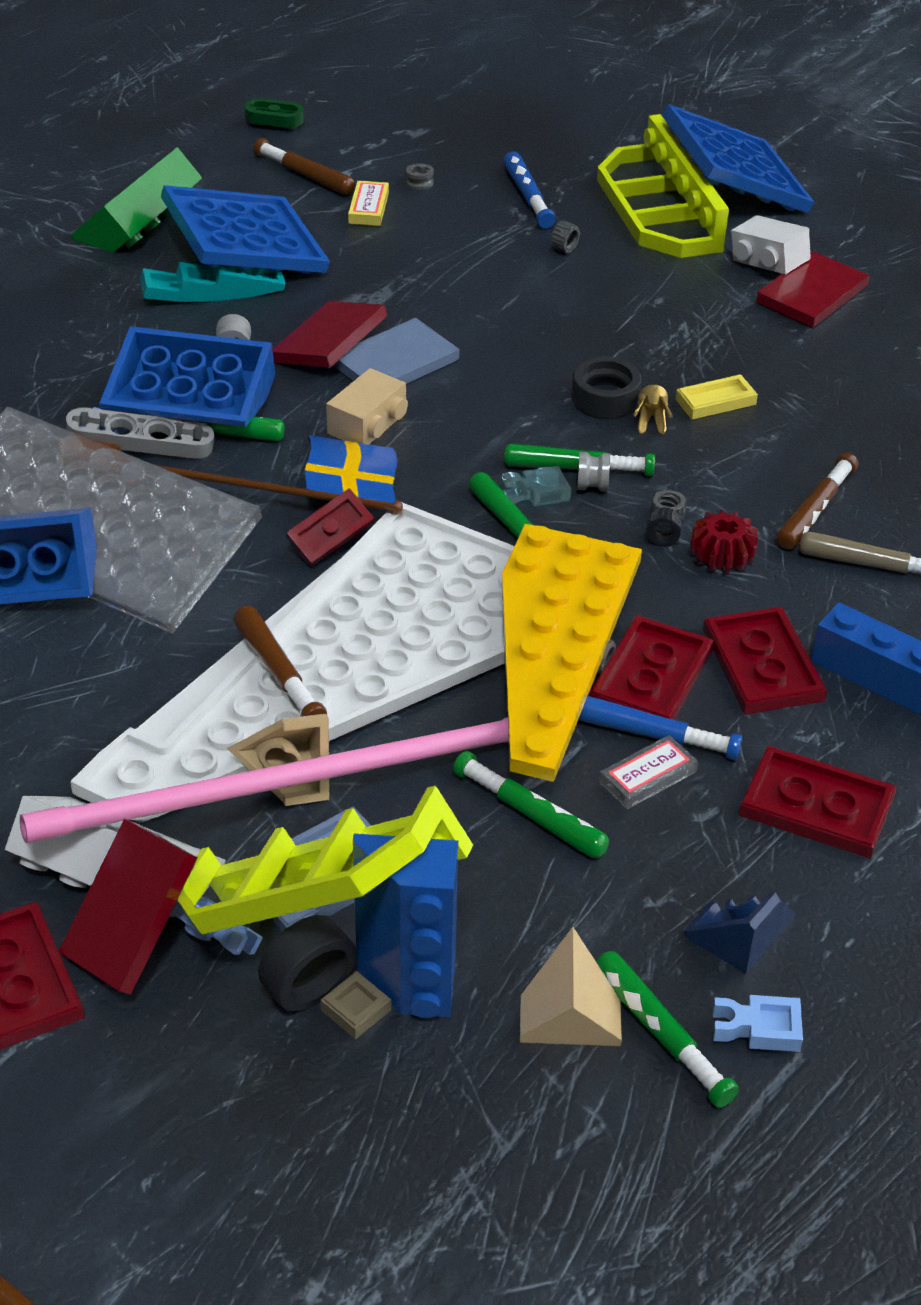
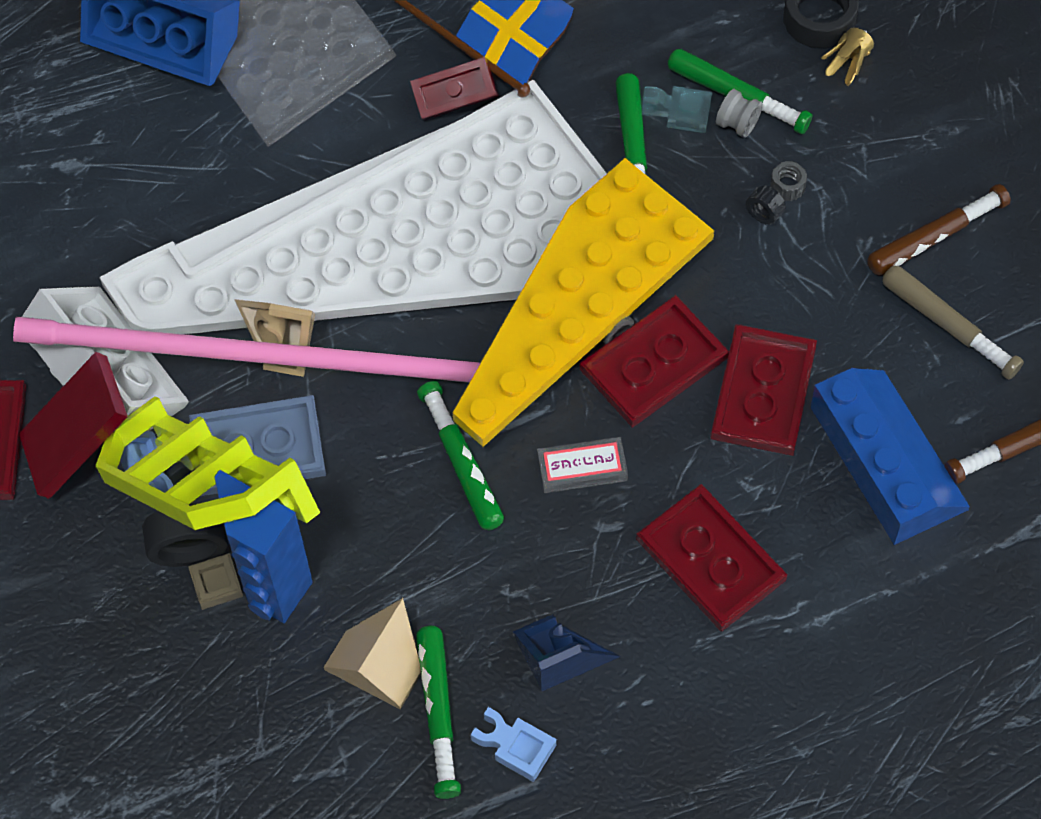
camera: 30 degrees right, 20 degrees up
(274, 658) = (321, 220): reddish brown piece -> none
(638, 722) = (609, 415): blue piece -> none
(716, 397) = (928, 60): light yellow tile -> none
(724, 541) = (809, 245): dark red gear -> none

